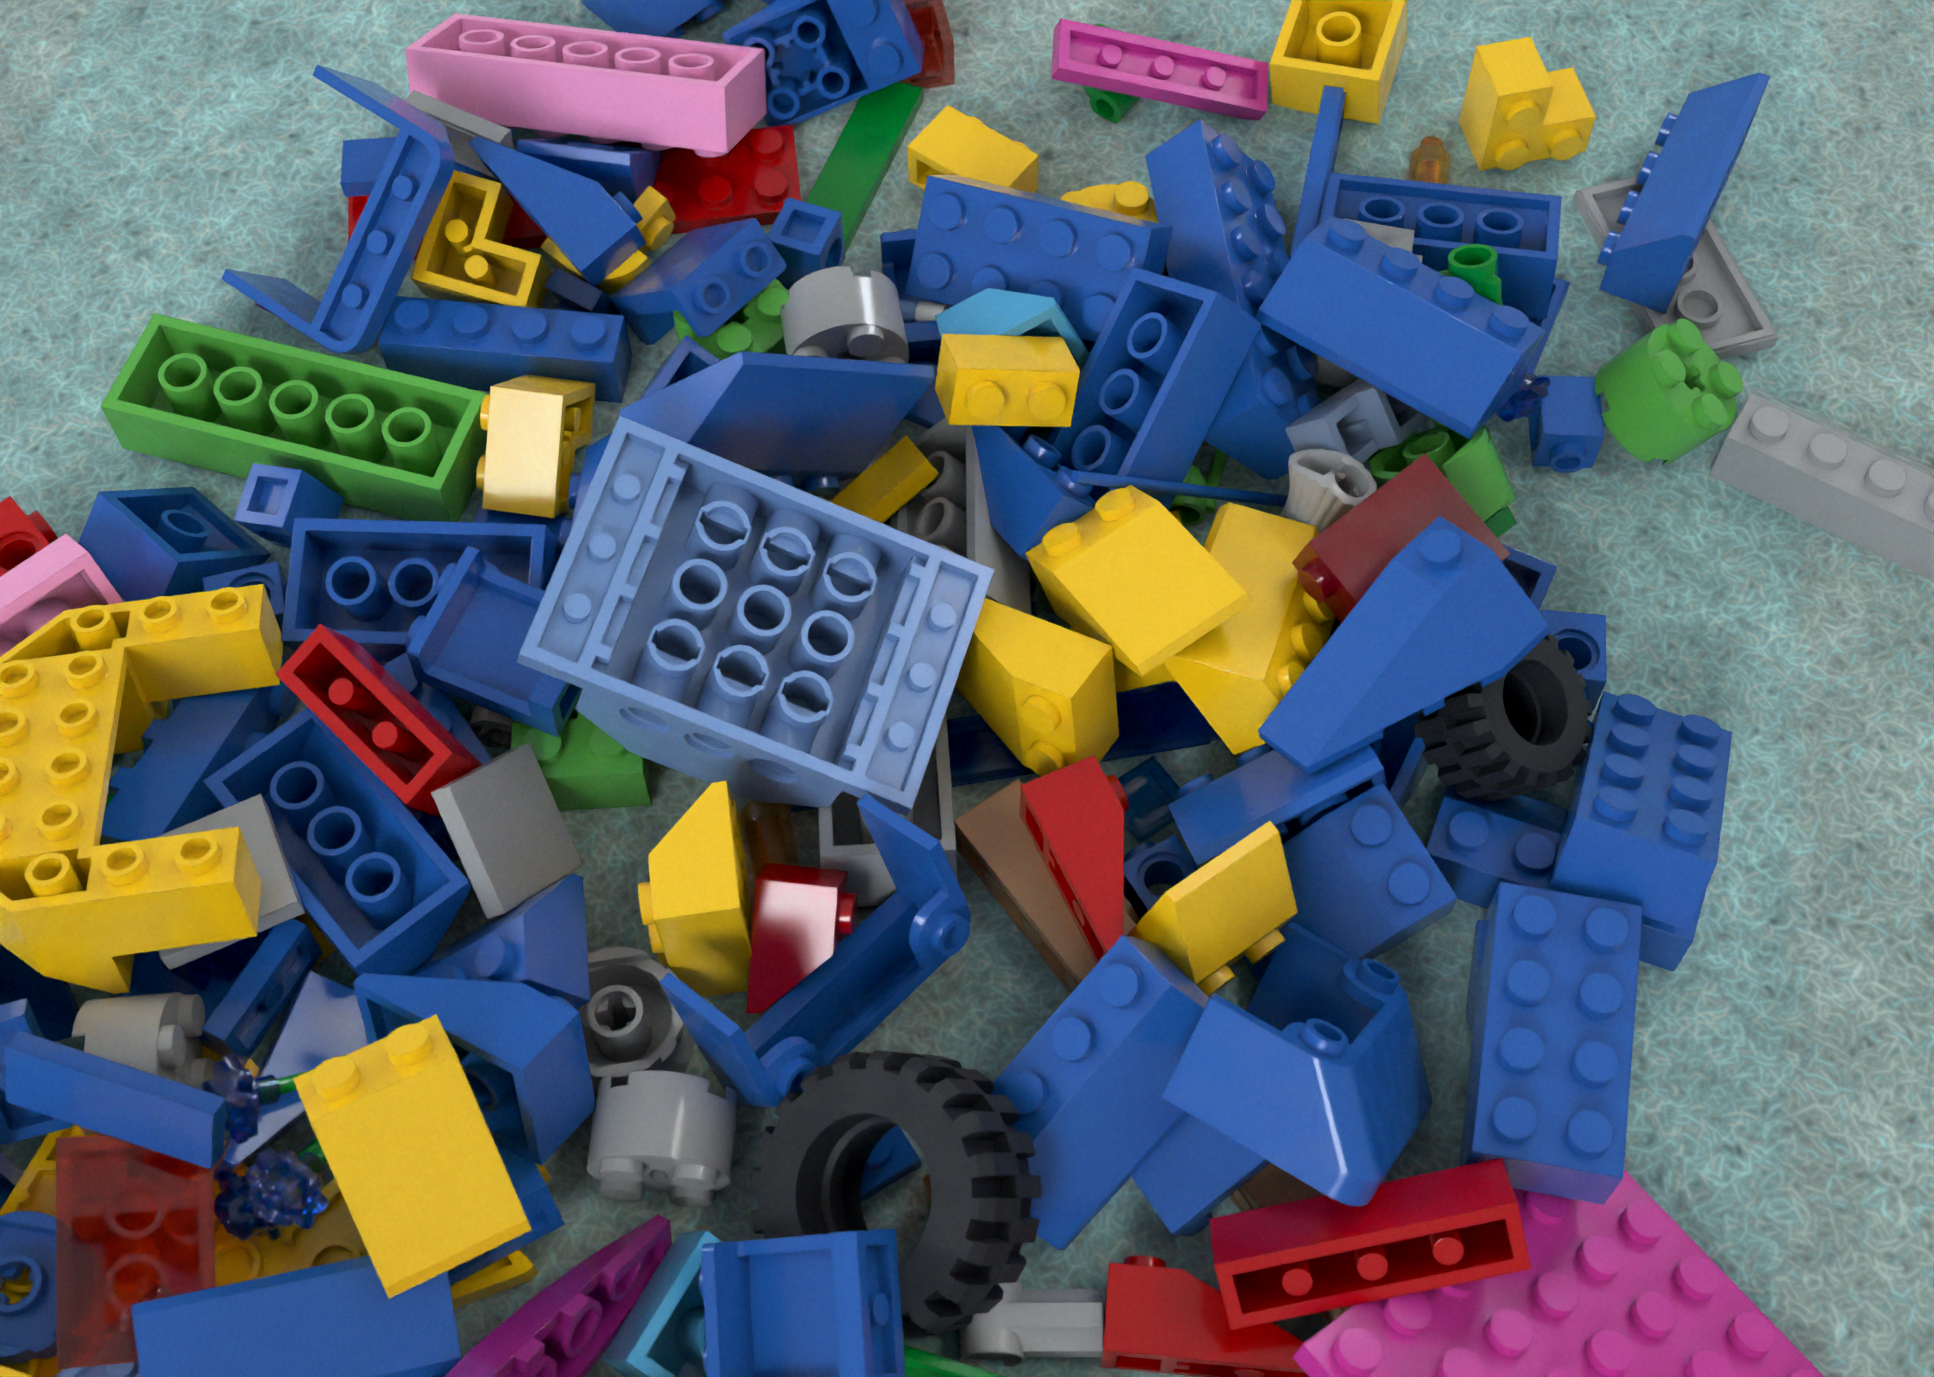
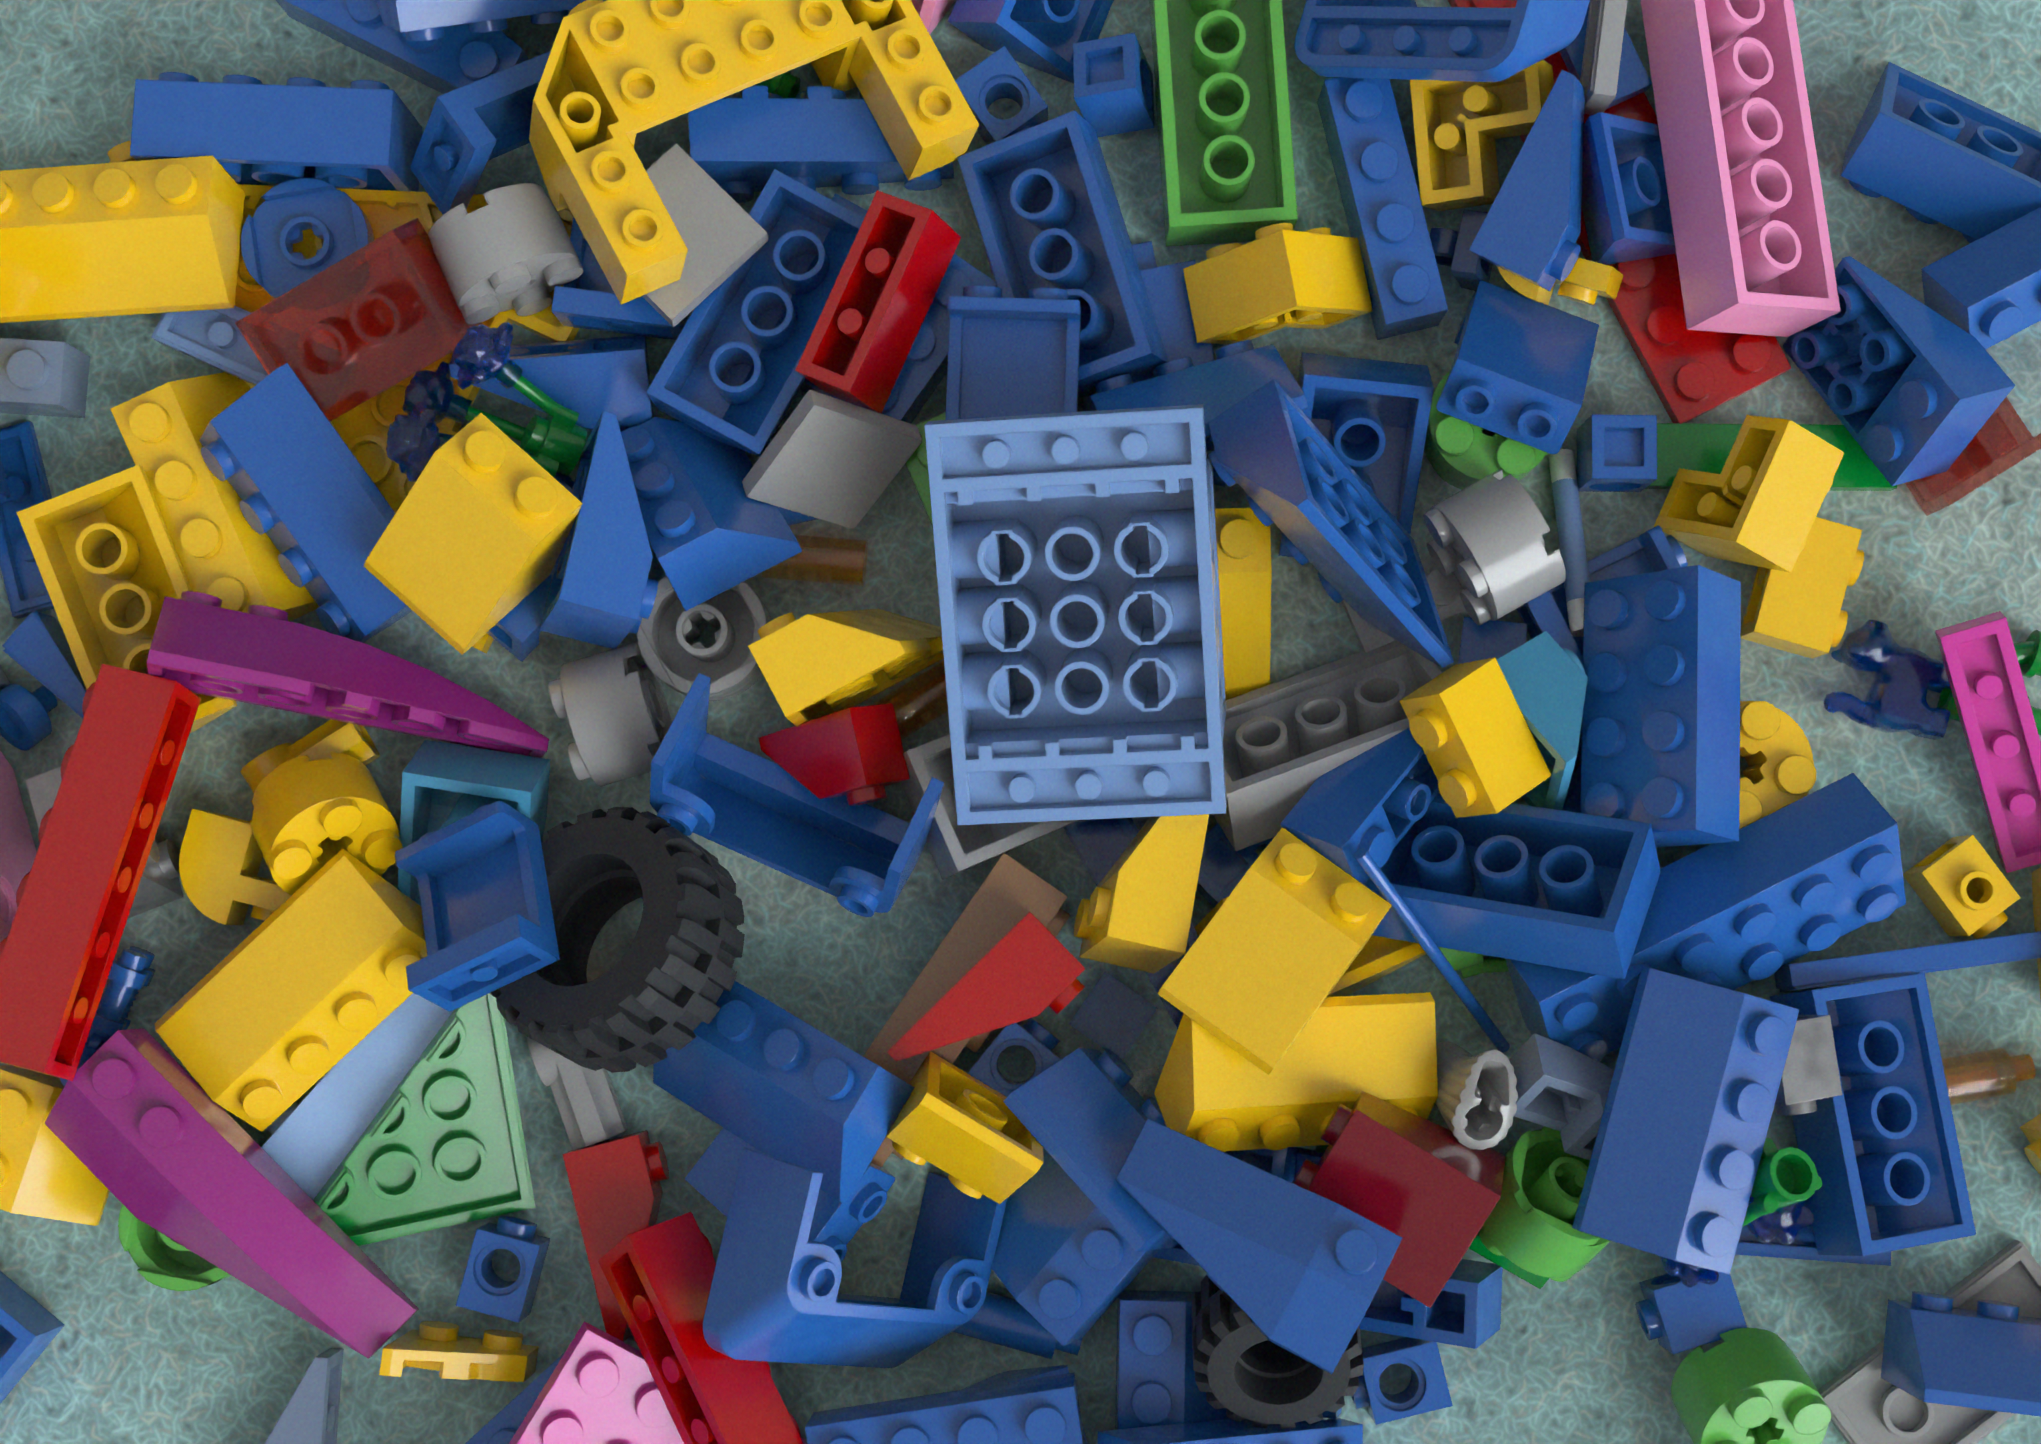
camera: 75 degrees right, 25 degrees up
(115, 1099) = (436, 262): blue tile -> none
(605, 898) = (824, 561): none -> clear orange cylinder
(888, 482) = (1341, 643): yellow tile -> none
(894, 150) = (1761, 499): none -> yellow brick
(1086, 132) = (1899, 688): none -> clear blue animal
(1272, 133) = (1963, 888): none -> yellow brick
(1432, 966) = (1012, 1326): none -> blue cylinder

